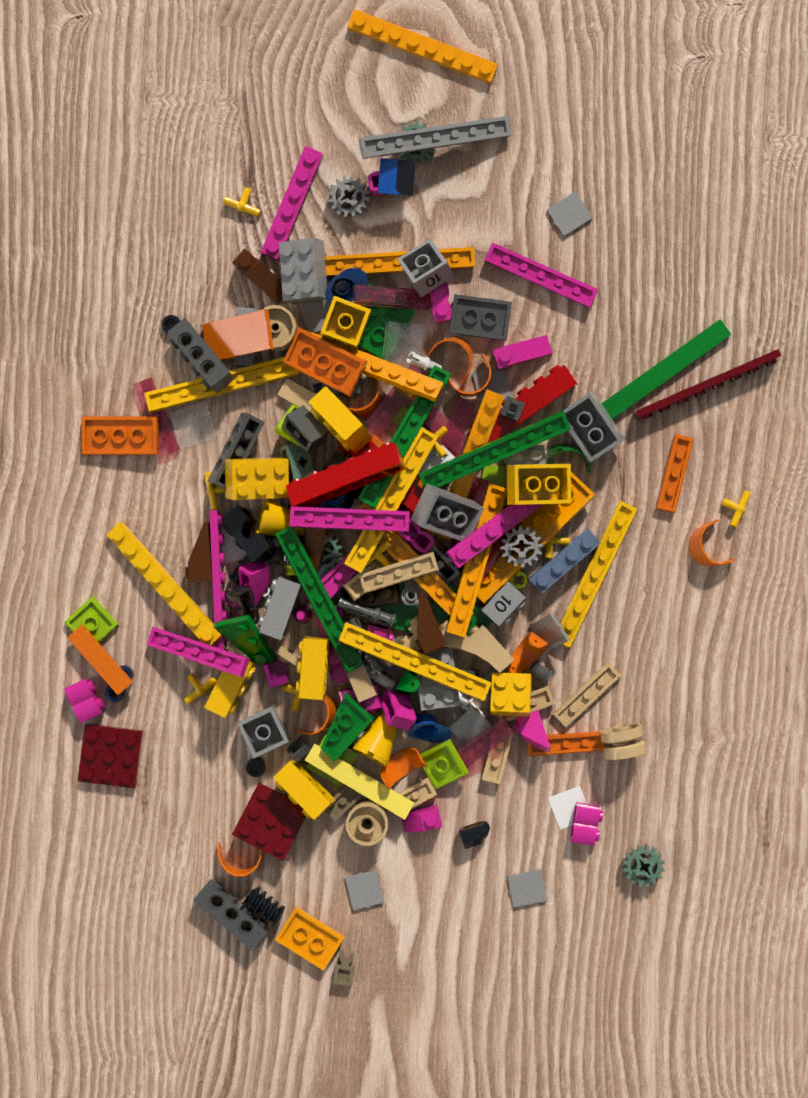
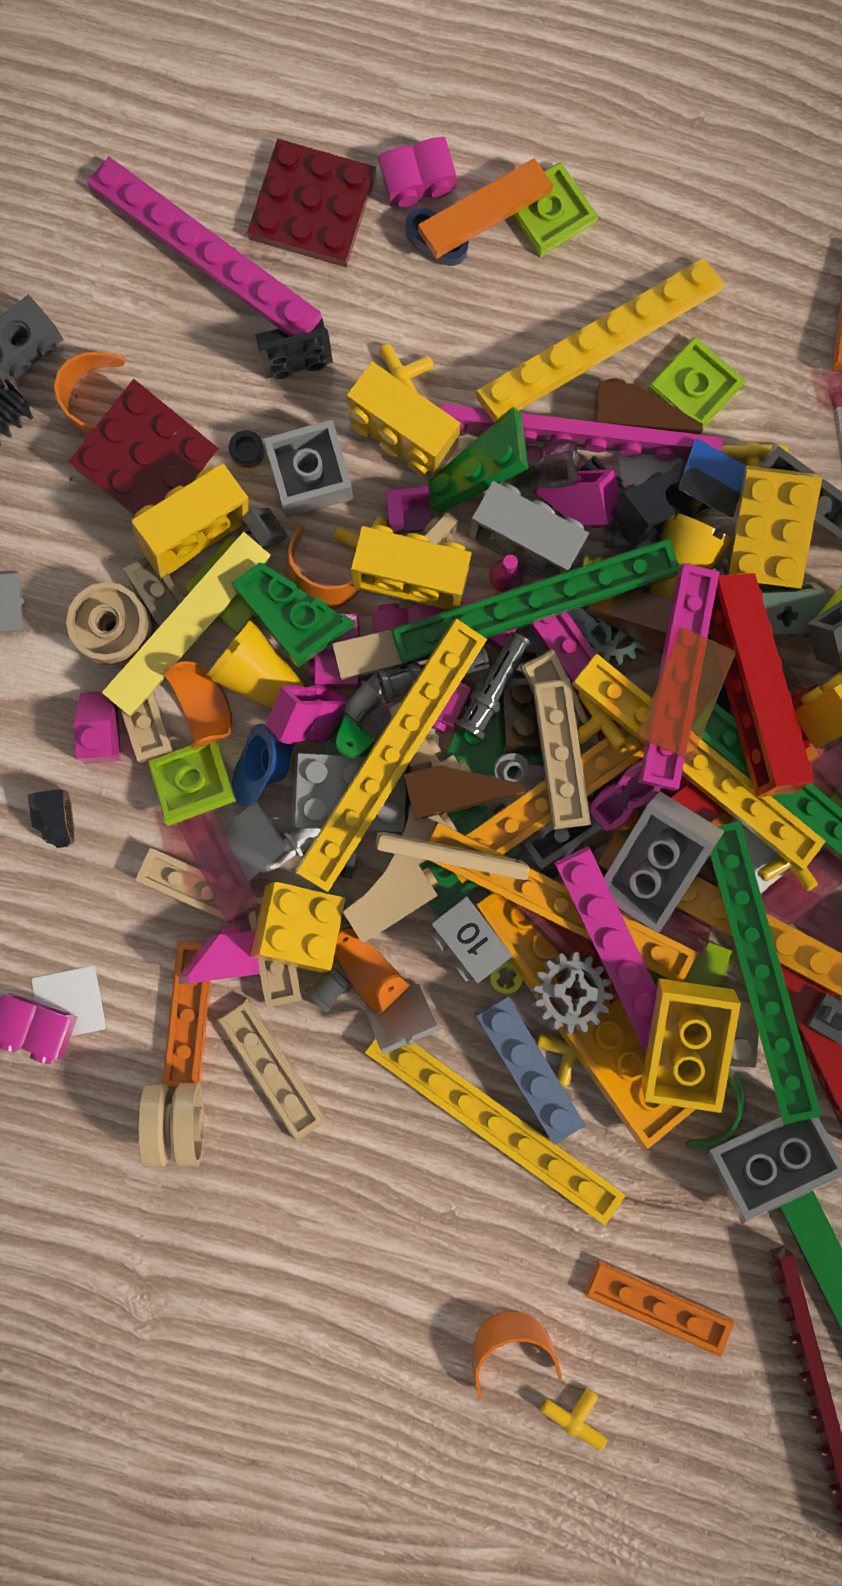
camera: 95 degrees right, 5 degrees down
(149, 810) = (203, 249): none -> dark pink plate
(178, 527) = (697, 382): none -> lime tile
(196, 751) = (286, 354): none -> black bracket
(198, 652) = (472, 373): dark pink plate -> none
(233, 514) = (713, 478): none -> sticker
(359, 514) = (686, 694): none -> clear orange piece
(463, 622) = (451, 855): none -> tan tile

